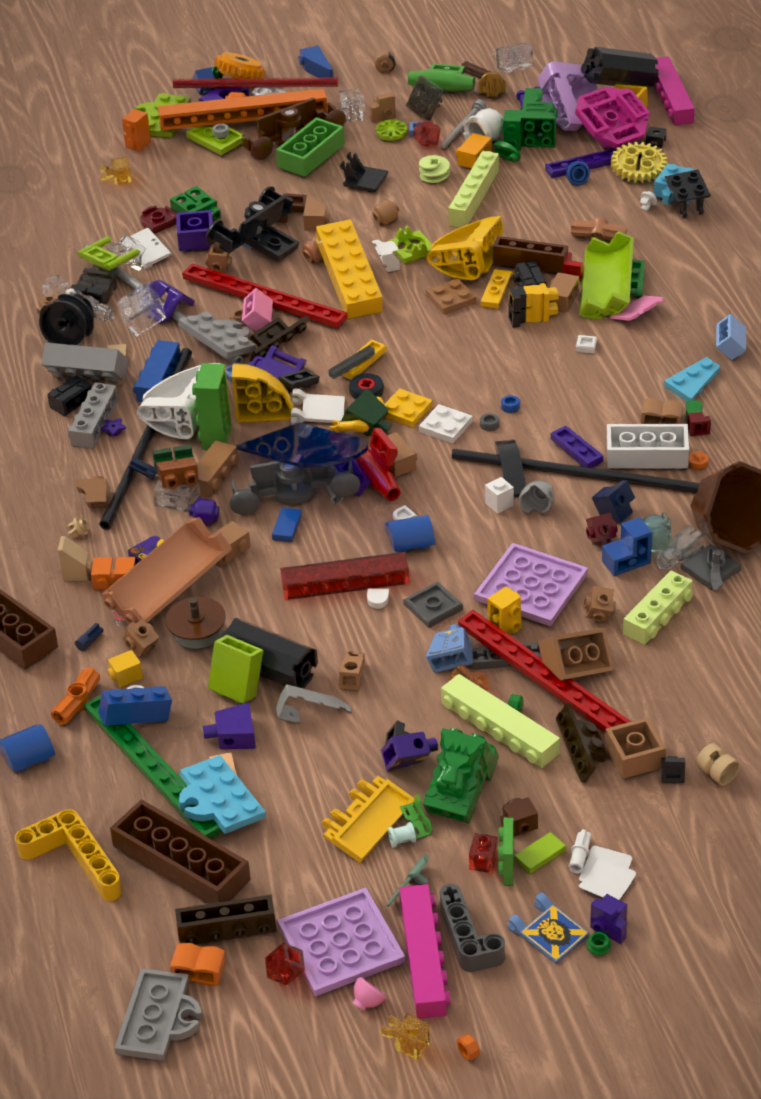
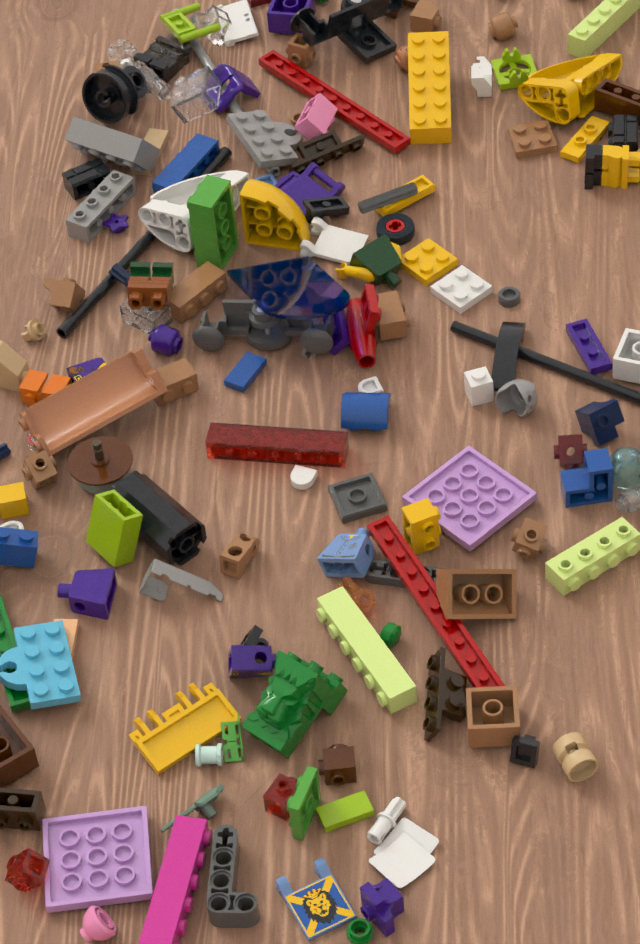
camera: 20 degrees right, 5 degrees up
(510, 404) = (541, 280): blue tile -> none

